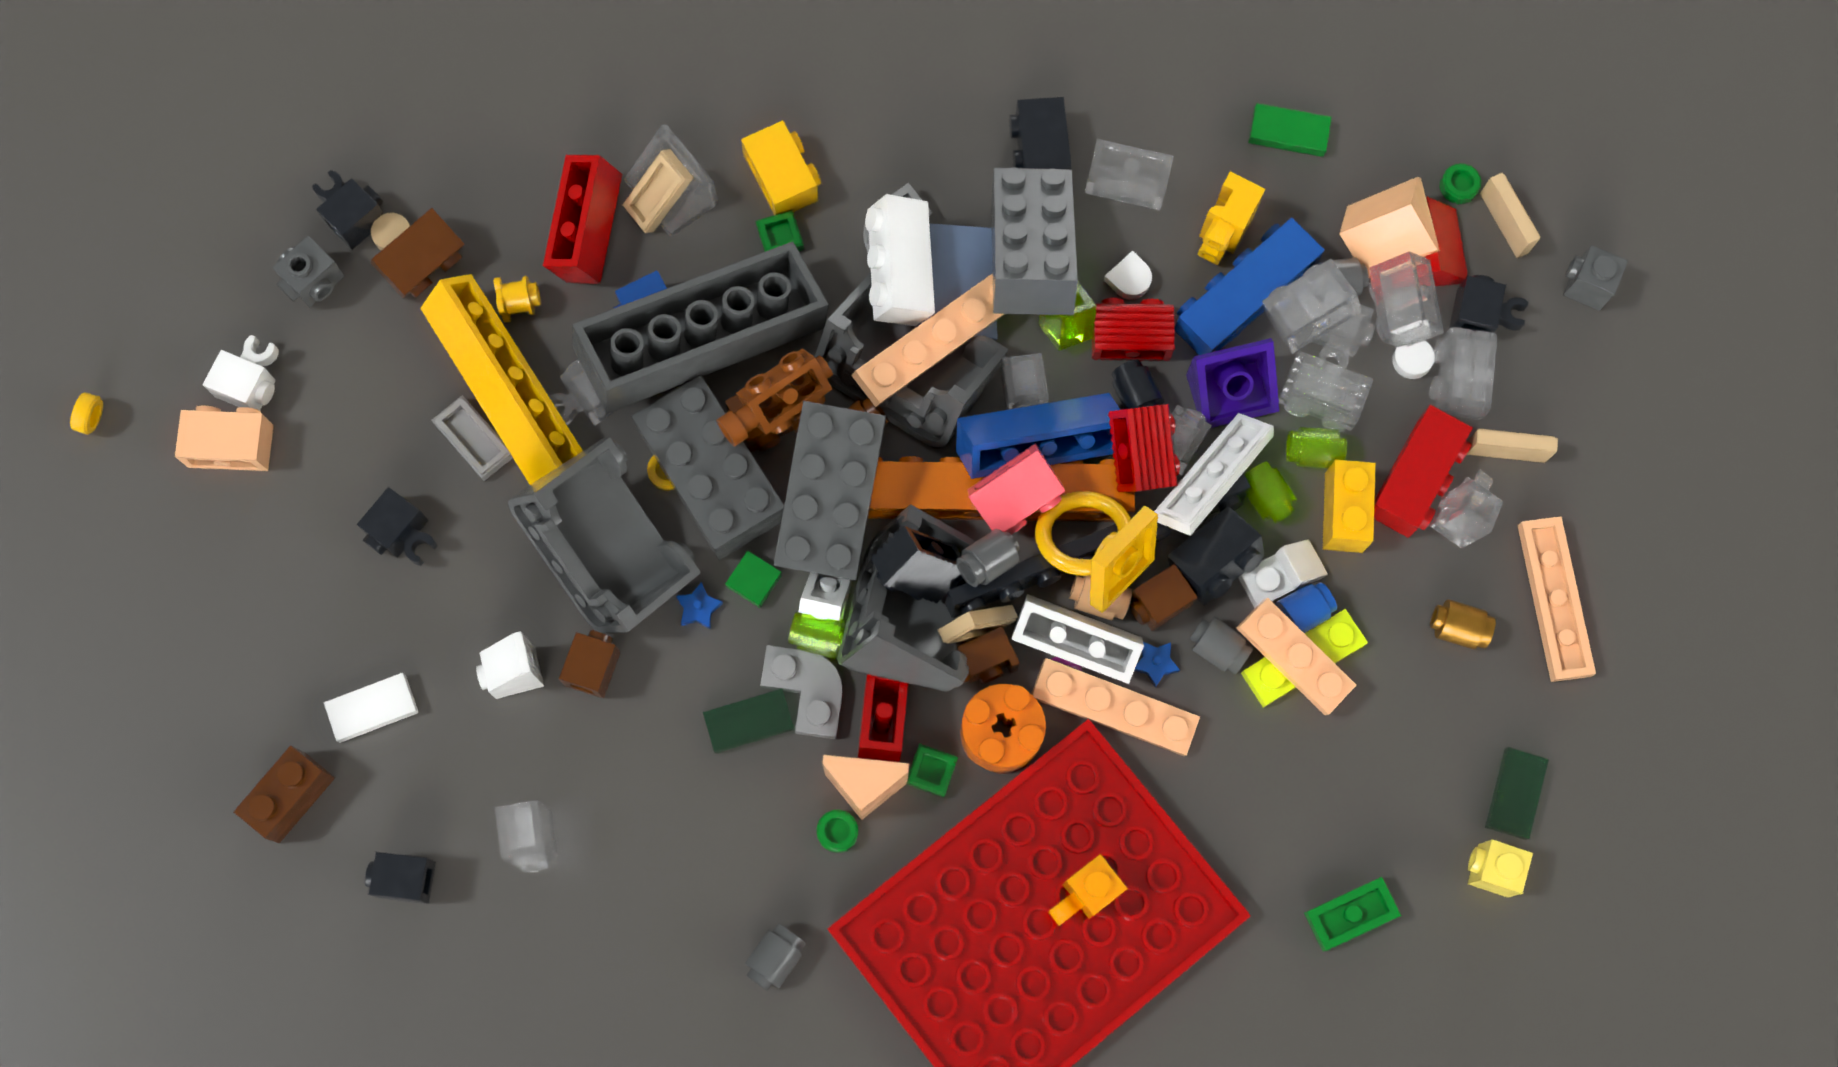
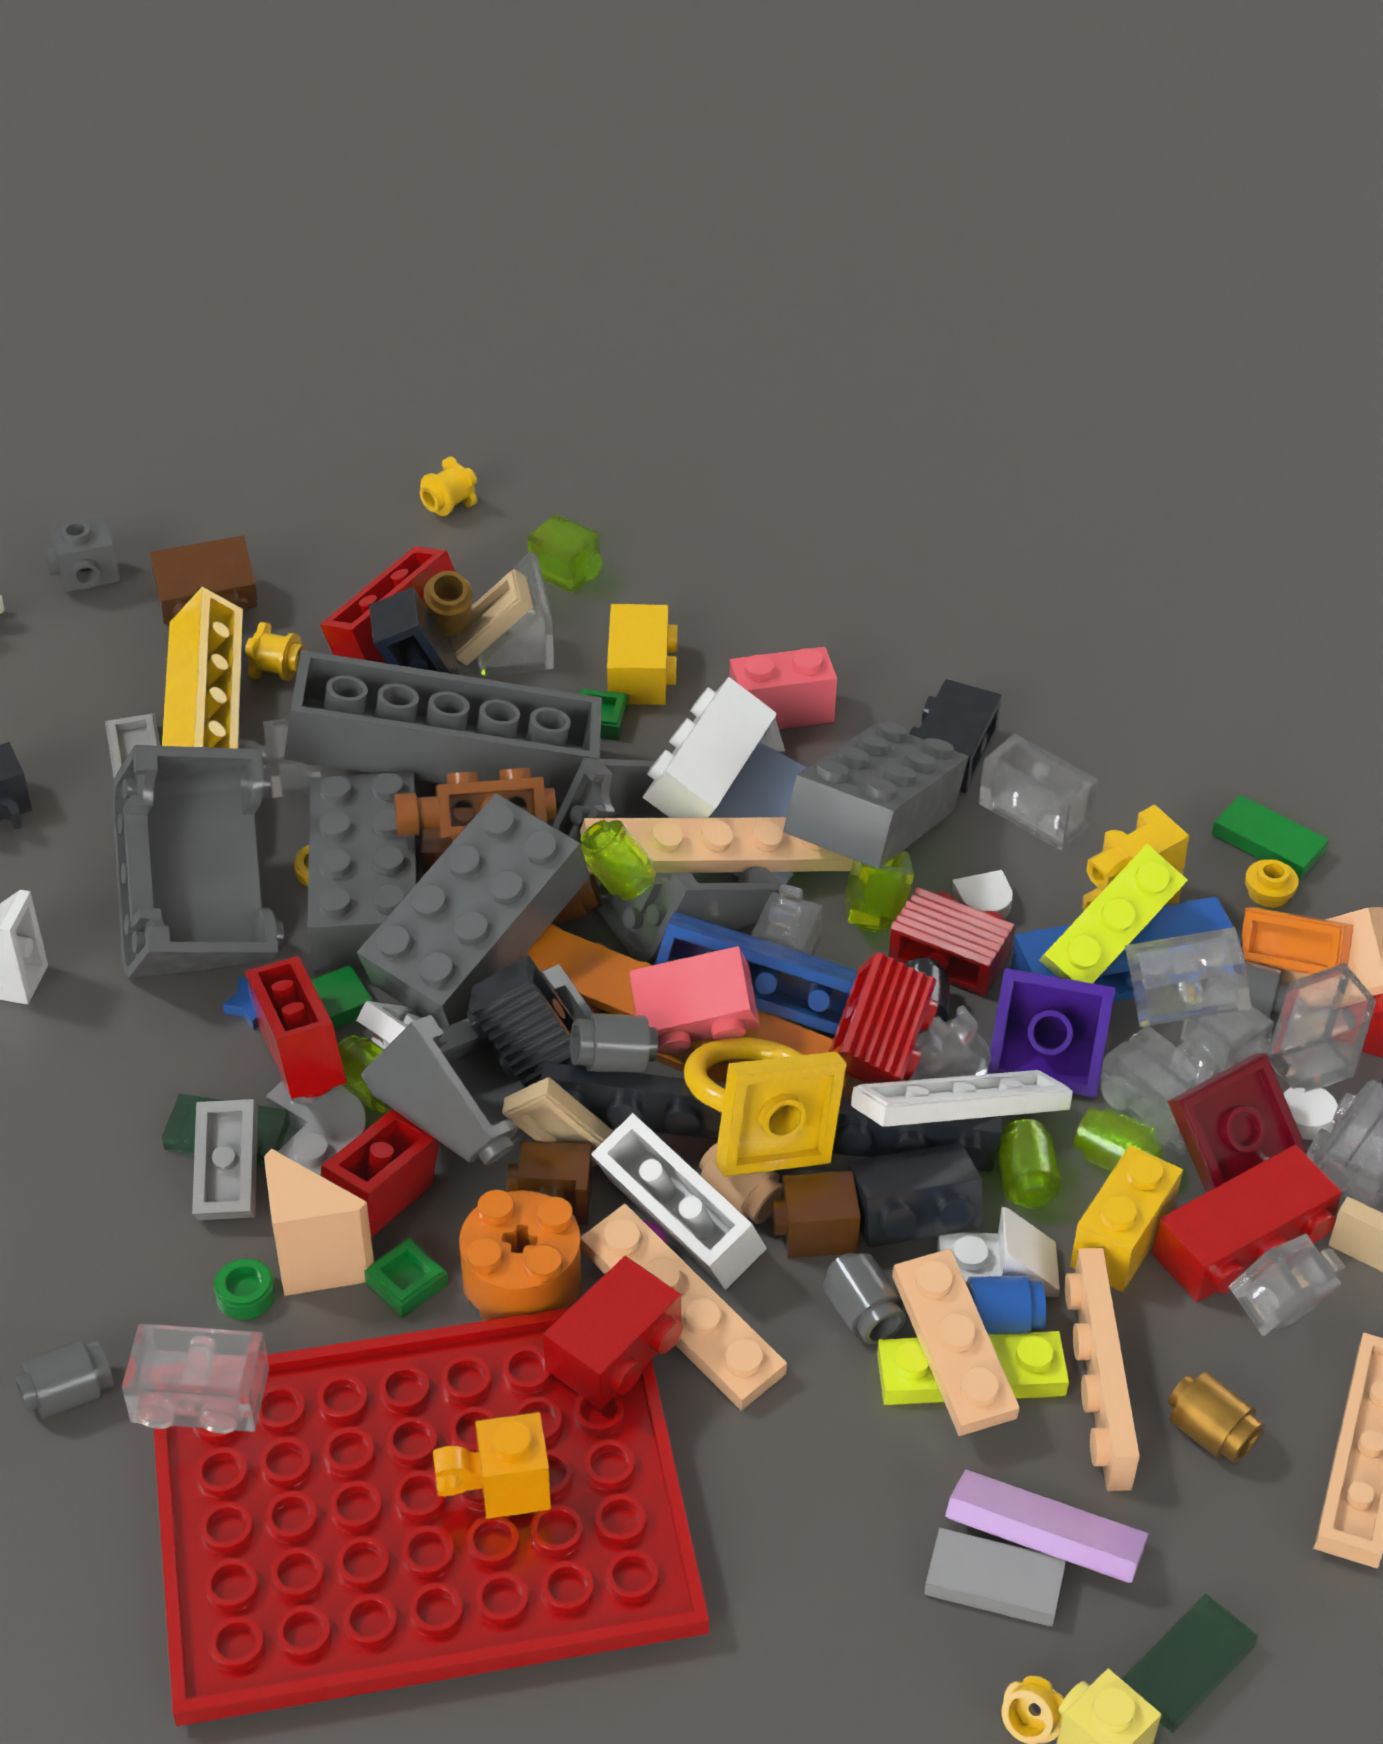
camera: 30 degrees right, 30 degrees down
(348, 209) = (166, 524): black brick -> none
(538, 65) = (448, 488): none -> yellow brick
(590, 663) = (88, 987): reddish brown brick -> none
(624, 251) = (410, 635): none -> black brick
(635, 194) = (449, 601): none -> pearl gold brick
(668, 93) = (566, 552): none -> clear neon green brick
(760, 636) = (296, 1028): none -> red brick
(771, 752) = (225, 1159): none -> light grey plate
(868, 927) = (196, 1378): none -> clear brick
(901, 399) = (617, 859): none -> clear neon green brick
(903, 157) = (792, 683): none -> coral brick
(1099, 761) = (613, 1332): none -> red brick
(1156, 662) = (769, 1289): blue piece -> none
(1245, 282) = (1114, 918): none -> neon yellow plate
(1304, 180) = (1271, 883): none -> yellow plate
(1352, 914) = (857, 1694): green plate -> none
(1362, 238) = (1294, 941): none -> orange tile
(1387, 405) = (1235, 1121): none -> dark red tile
(1387, 795) = (995, 1577): none -> light grey tile
(1391, 634) = (1105, 1385): none -> light nougat plate
(1402, 748) = (1047, 1526): none -> lavender tile
(1451, 873) = (1020, 1717): none -> yellow plate

